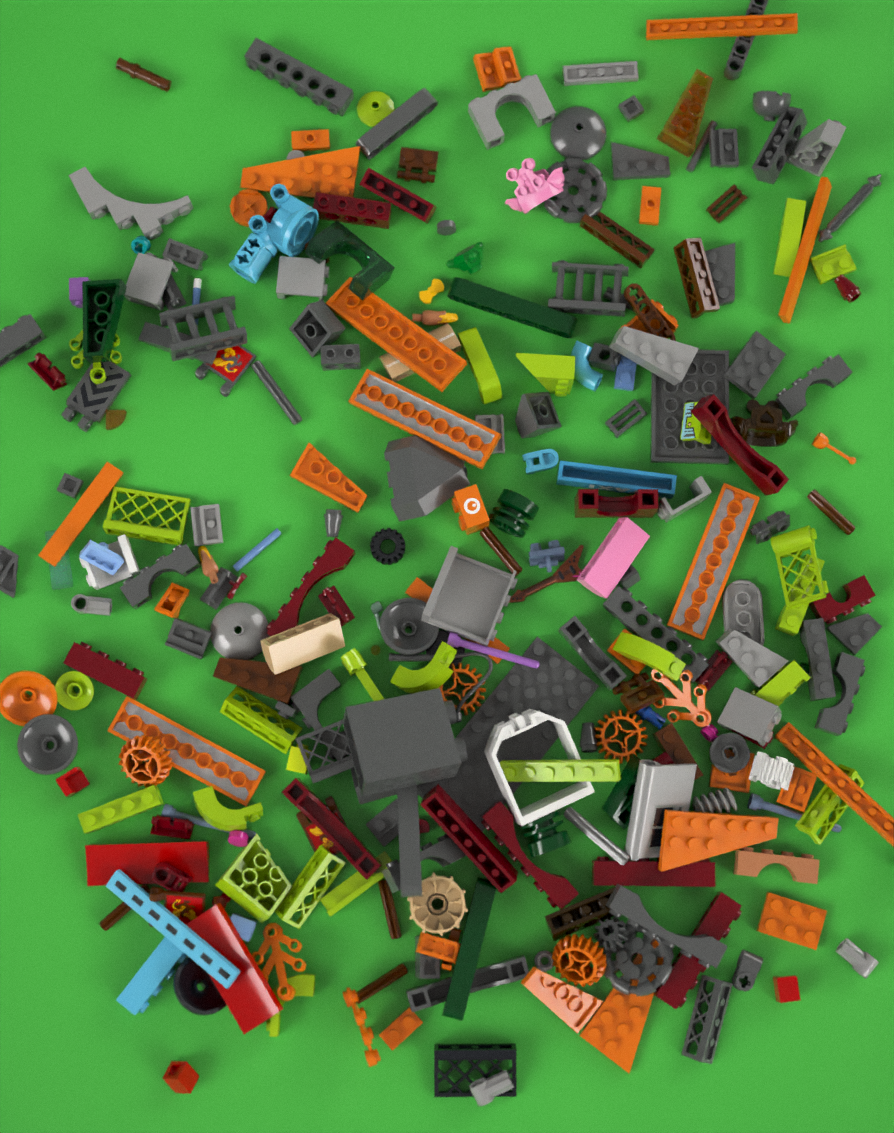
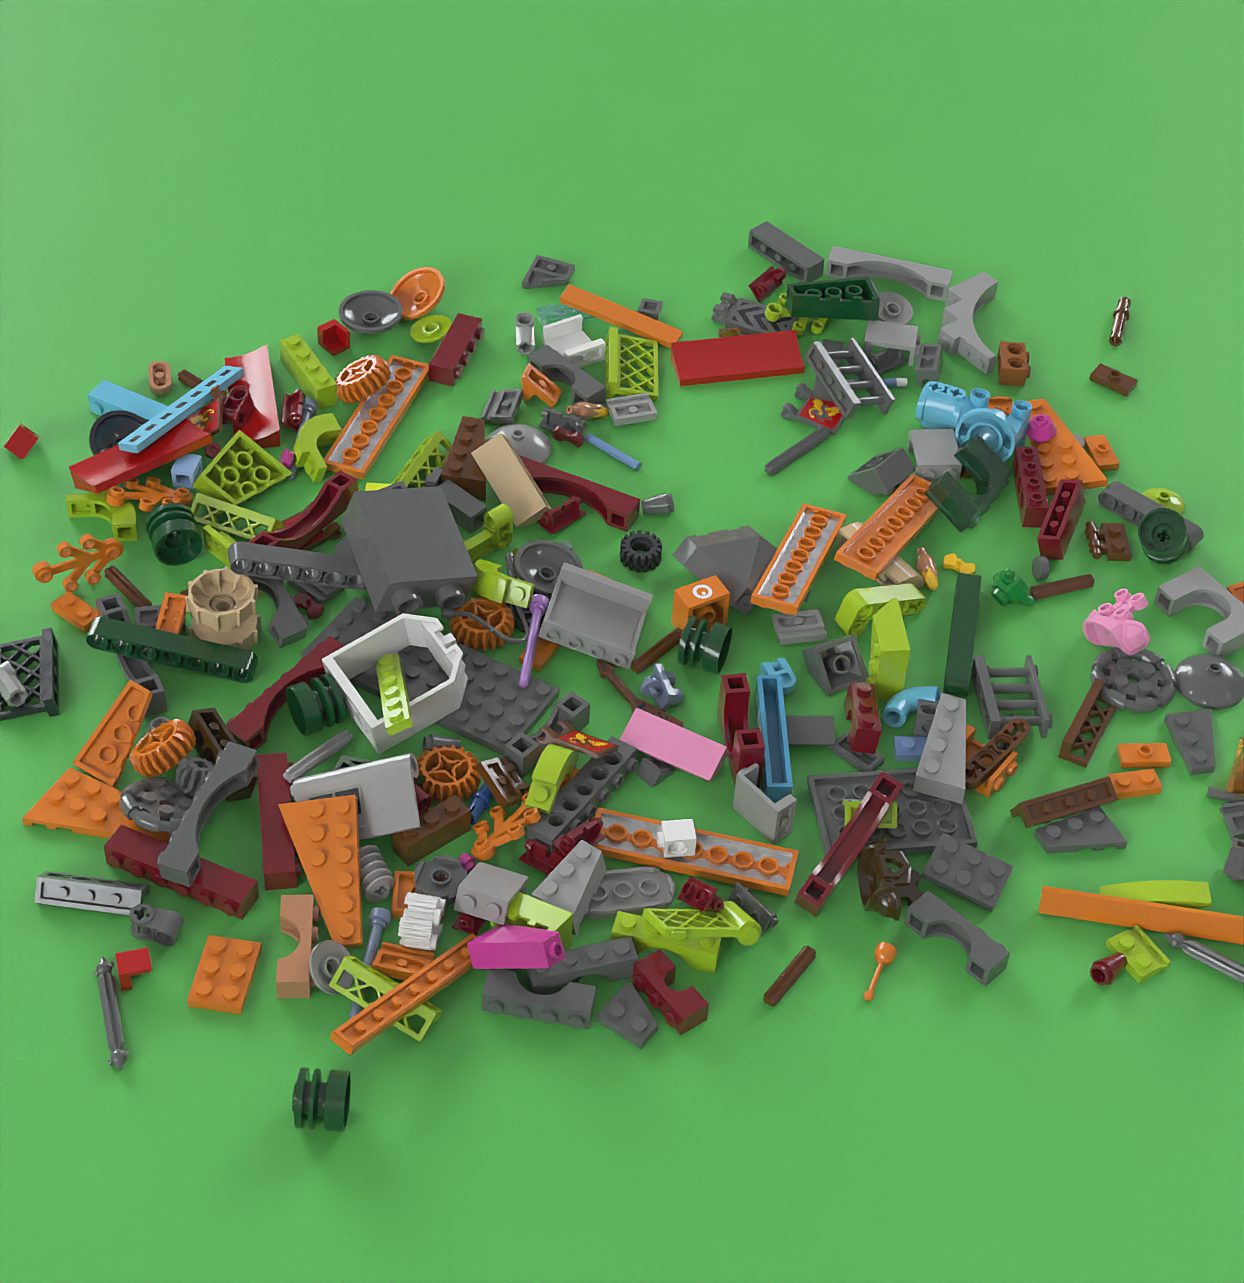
camera: 80 degrees right, 35 degrees down
(67, 225) = (926, 279): none -> light grey arch
(101, 556) = (577, 328): light blue tile -> none
(103, 261) = (894, 308): none -> light grey dish
(108, 947) = (160, 378): none -> nougat plate
(144, 241) = (928, 333): teal bush -> none
(151, 420) = (736, 358): none -> red arch
(190, 186) = (1013, 363): none -> dark orange brick
(218, 103) = (1113, 379): none -> reddish brown plate
(260, 51) = (1168, 434): dark grey brick -> none
(293, 186) = (1041, 429): none -> dark pink cone
(321, 475) = (708, 494): orange wing -> none
(331, 942) = (174, 534): none -> dark green wheel
(340, 357) = (853, 492): dark grey brick -> none
(442, 127) = (1156, 526): none -> dark green wheel
(465, 216) = (1061, 586): none -> reddish brown axle
(469, 838) = (303, 631): dark red brick -> none
(604, 448) = (810, 730): none -> dark grey panel
(616, 407) = (862, 709): none -> dark red arch
(619, 628) = (577, 741): none -> reddish brown flag
(676, 221) = (1136, 783): none -> orange plate
(706, 644) = (587, 831): none -> dark red hinge
(713, 570) = (677, 838): none -> white brick
(738, 193) = (1178, 829): reddish brown tile -> none
(766, 564) = (700, 896): none -> dark red hinge
(801, 843) = (324, 963): none -> light grey dish
(814, 706) = (516, 948): none -> dark pink slope
(820, 1006) = (111, 1013): none -> dark grey wheel
(861, 961) = (174, 1051): light grey piece -> none

